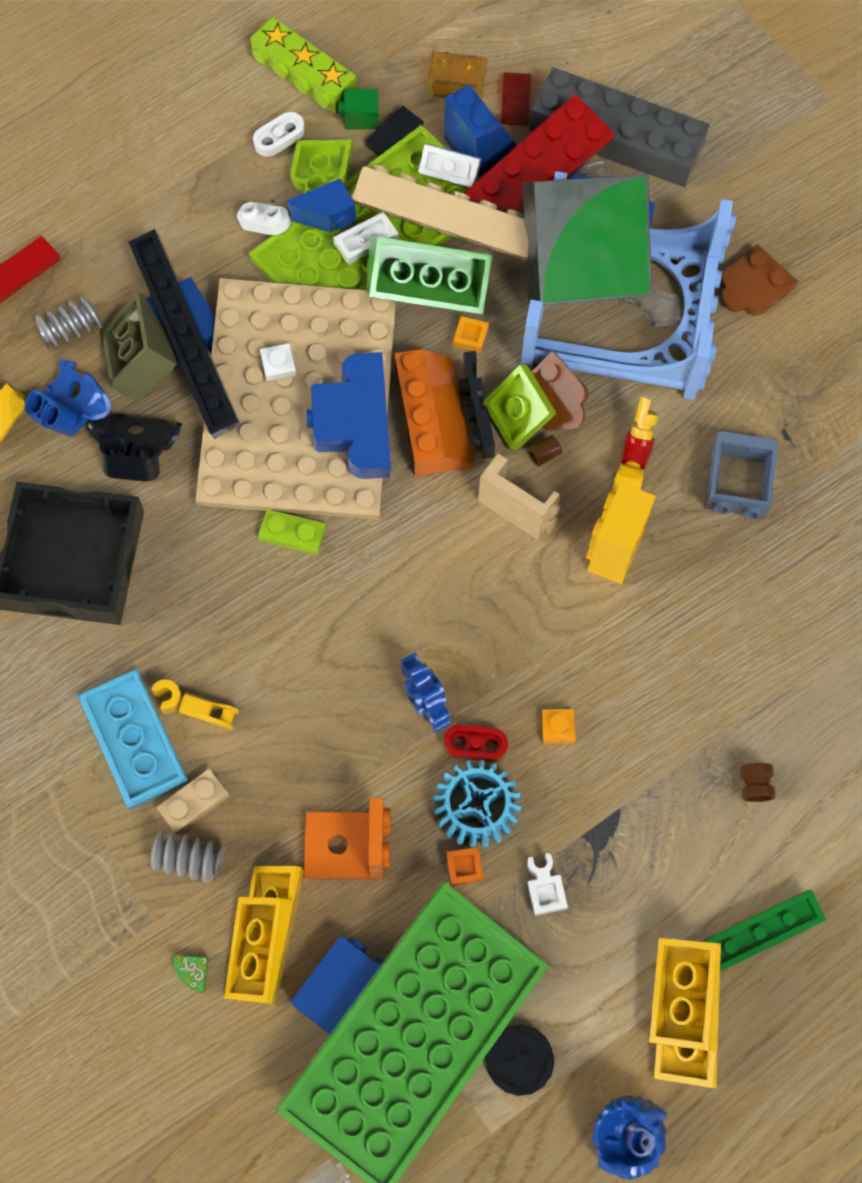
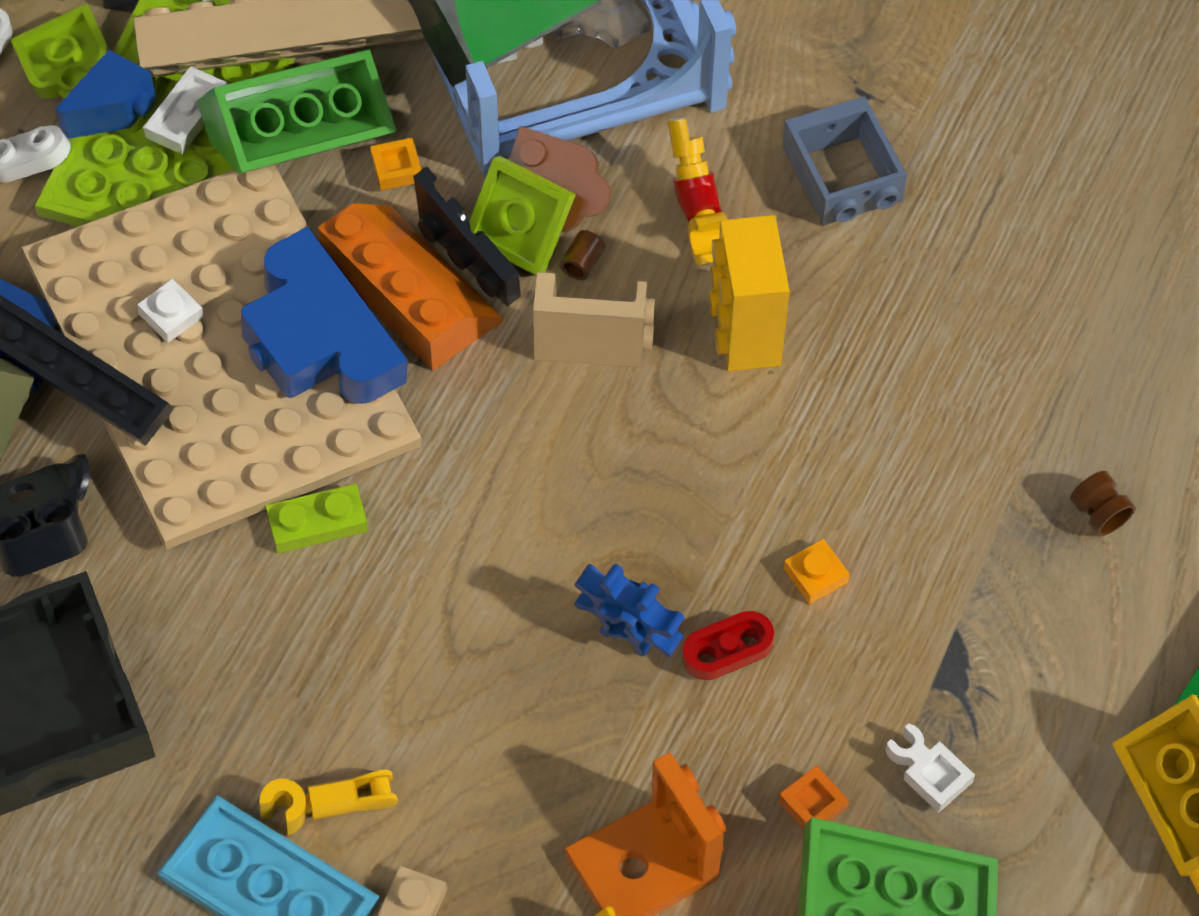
camera: 30 degrees left, 10 degrees down
(488, 796) = (750, 693): medium azure gear -> none

